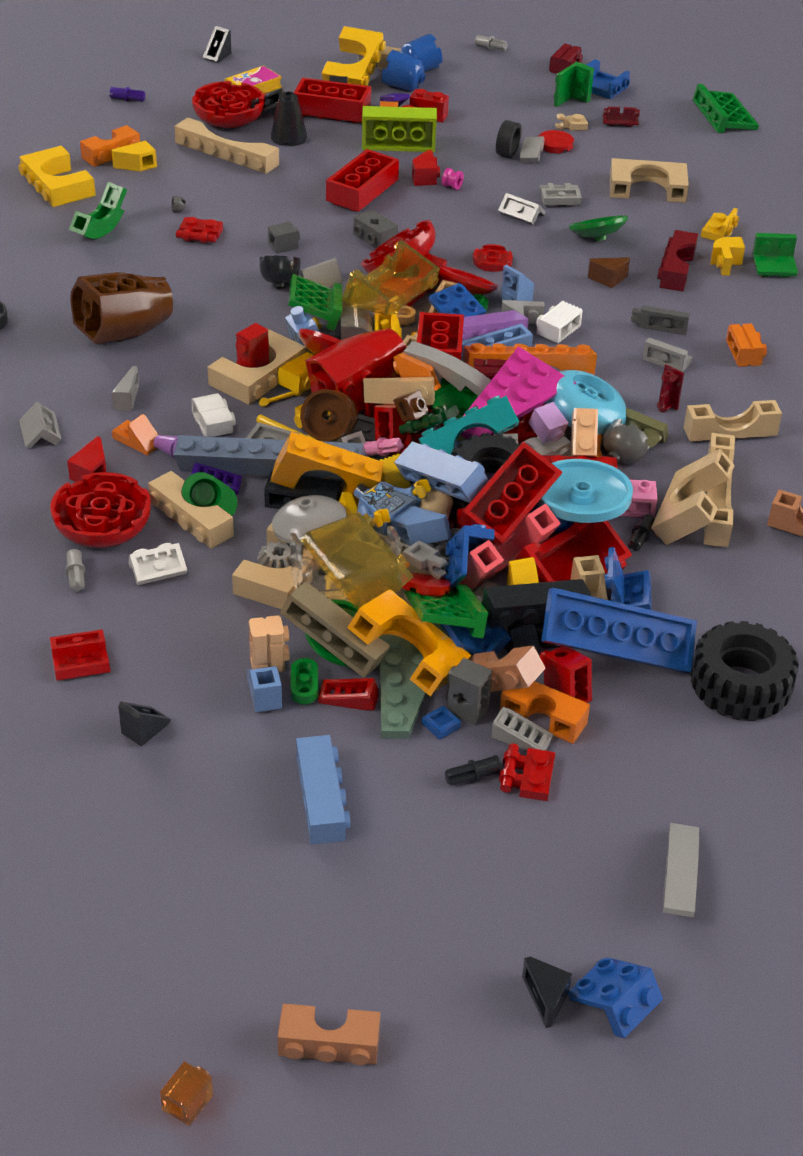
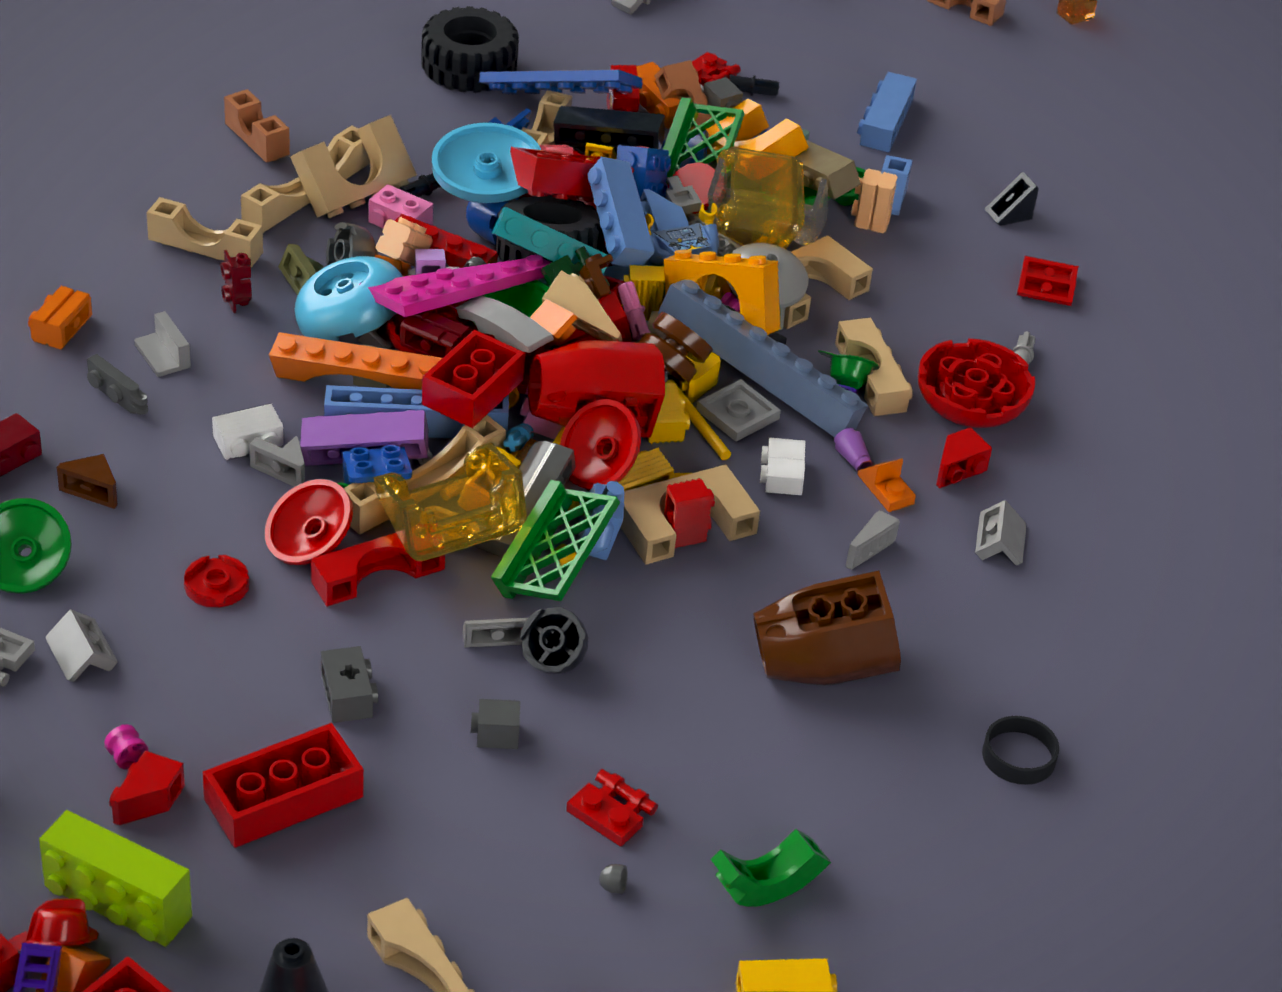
camera: 155 degrees left, 0 degrees up
(157, 563) = (931, 329): white bracket -> none
(275, 555) = (820, 284): light grey gear -> none
(420, 239) = (377, 551): red brick -> none
(516, 285) = (255, 485): medium blue slope -> none

